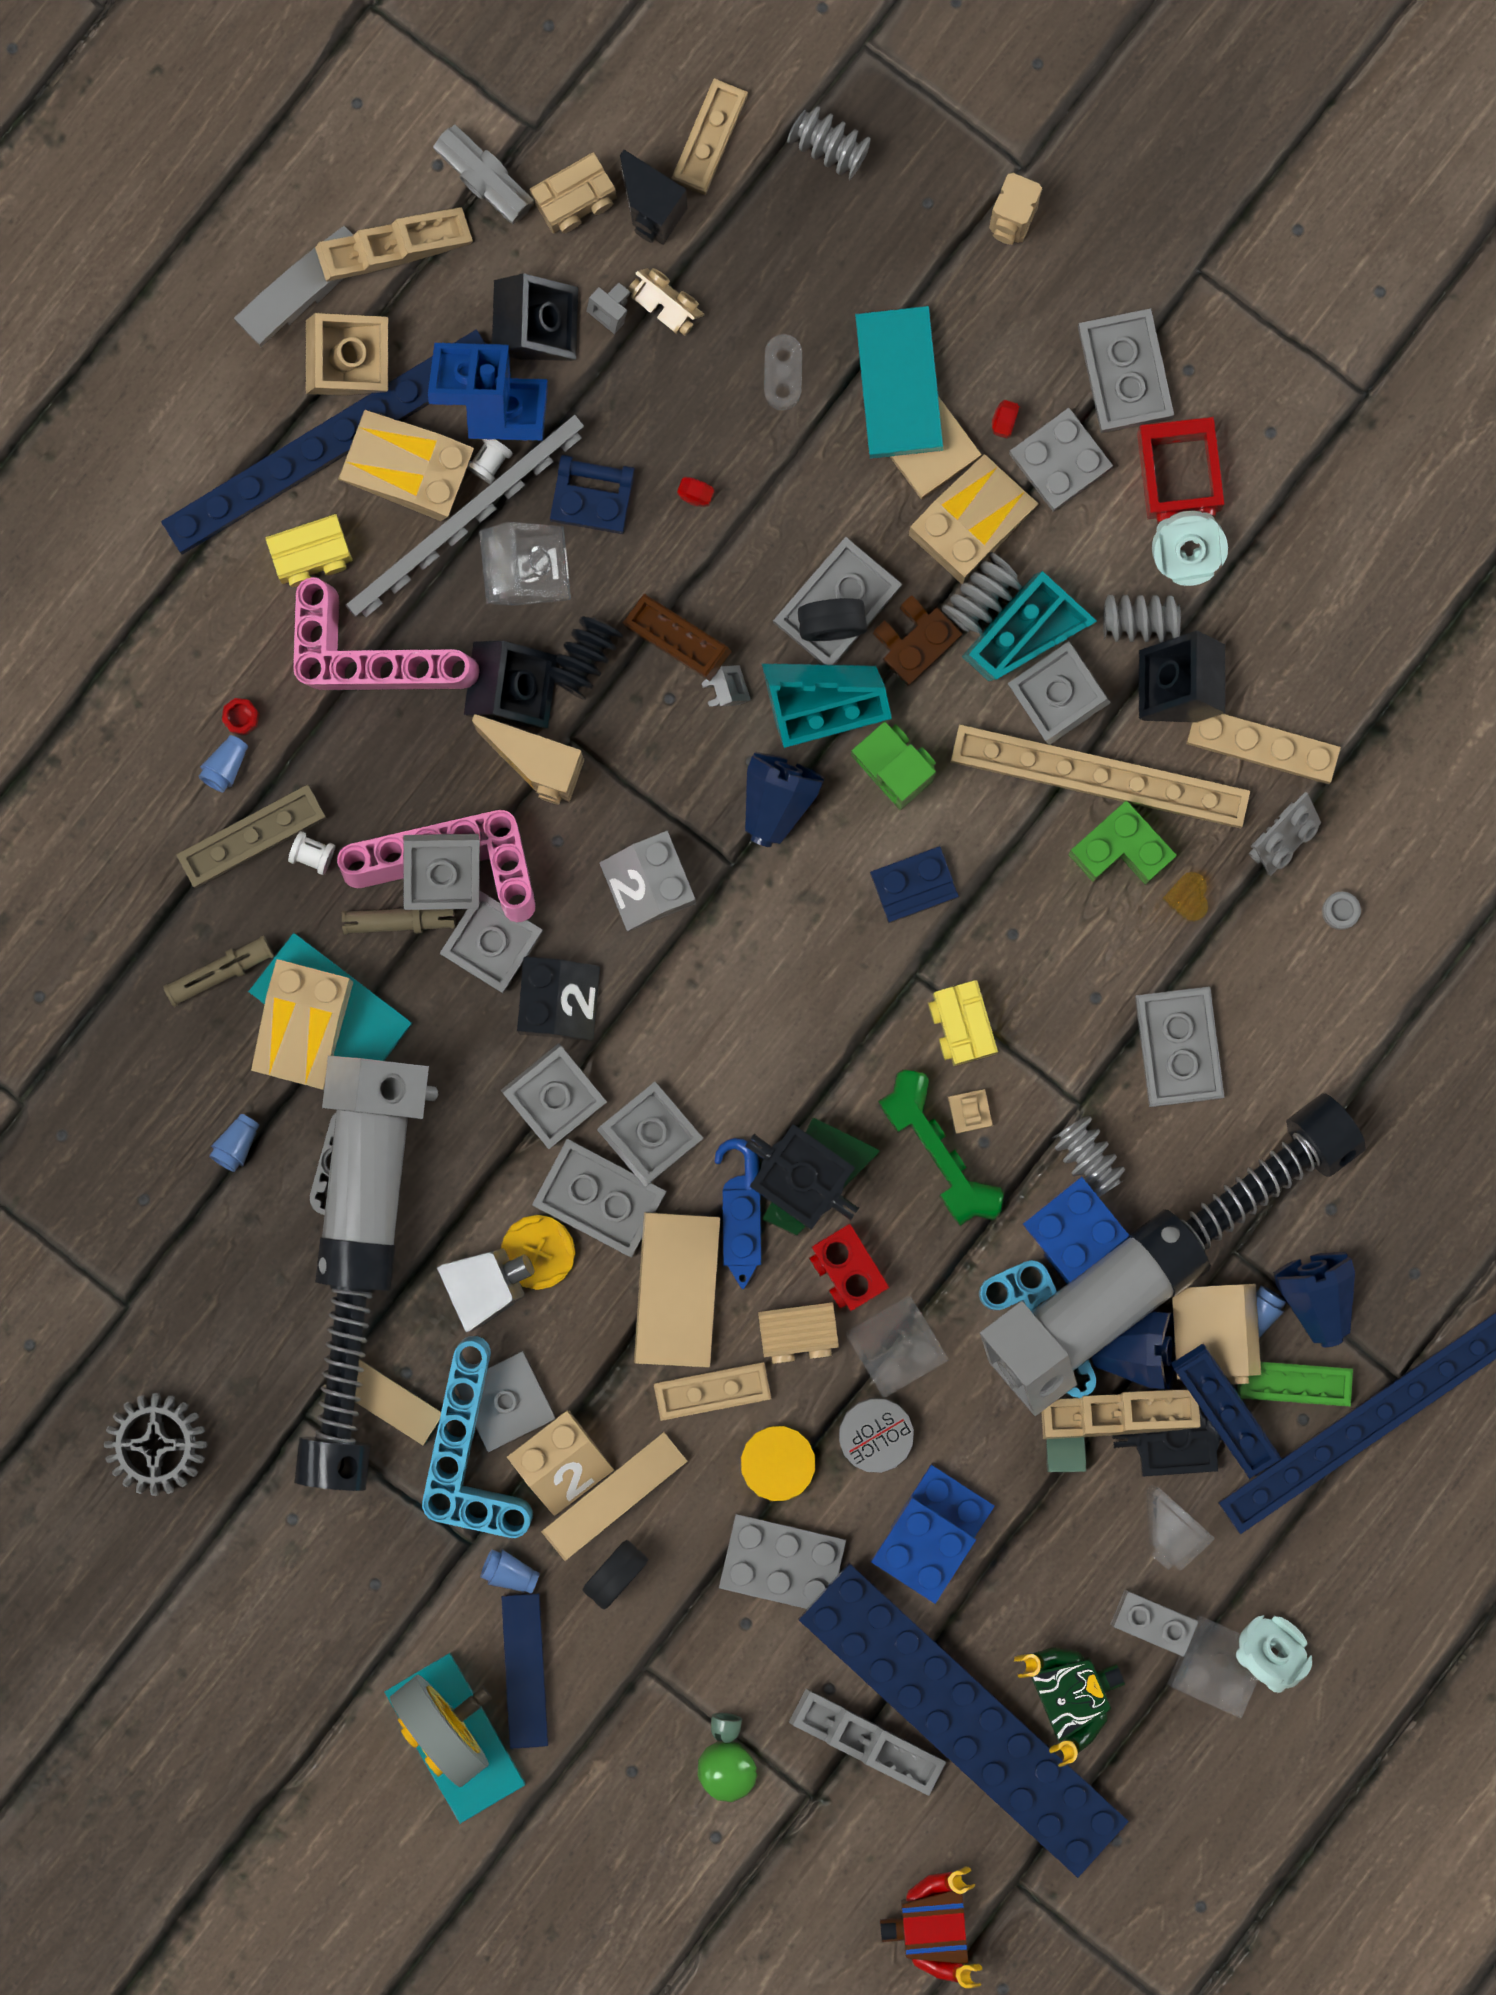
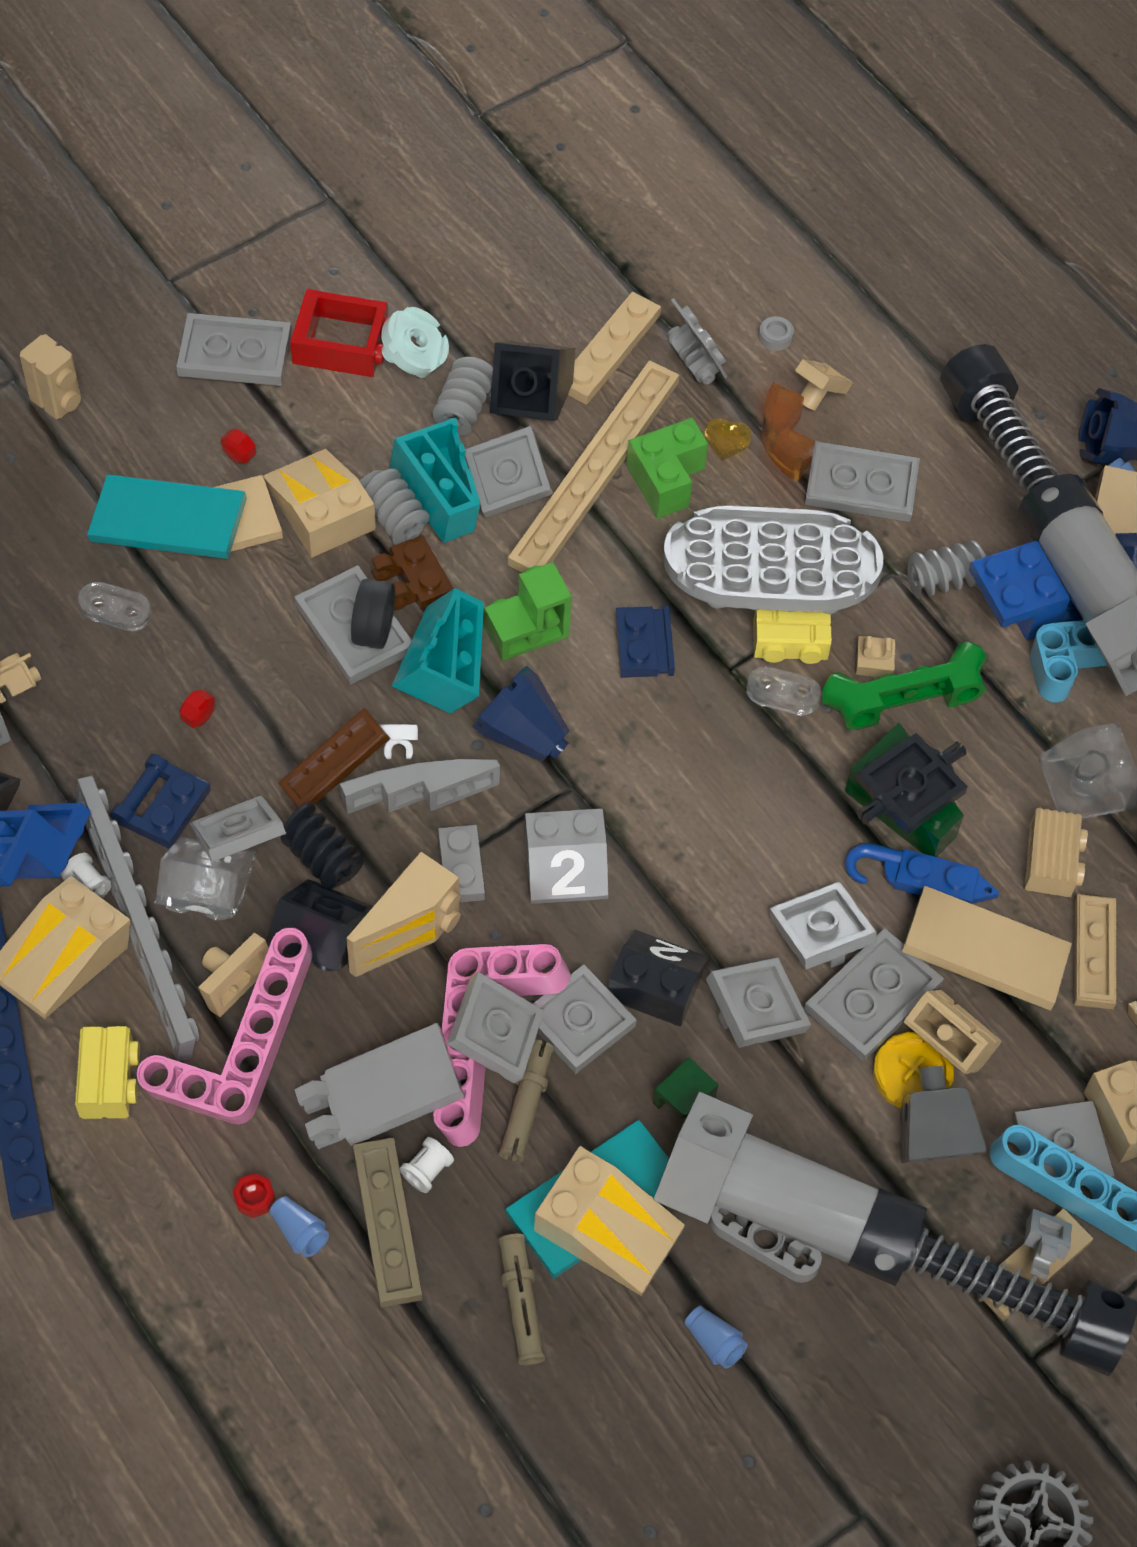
camera: 80 degrees left, 25 degrees down
(364, 793) = (382, 1089): none -> light grey tile
(401, 1403) = (1049, 1239): none -> light grey plate
(437, 624) = (232, 974): none -> tan tile
(446, 1055) = (683, 1086): none -> dark green panel
(576, 575) = (237, 828): none -> light grey plate
(576, 1277) = (952, 1031): none -> tan brick
(616, 788) = (462, 857): none -> light grey plate
(685, 736) = (434, 782): none -> light grey slope
(857, 1263) = (1000, 785): red brick -> none
(902, 1032) = (783, 691): none -> clear plate
(1036, 982) = (773, 559): none -> light grey plate
(1060, 459) = (292, 421): light grey plate -> none
(1223, 941) = (785, 447): none -> clear orange brick
(1282, 974) = (821, 380): none -> tan tile

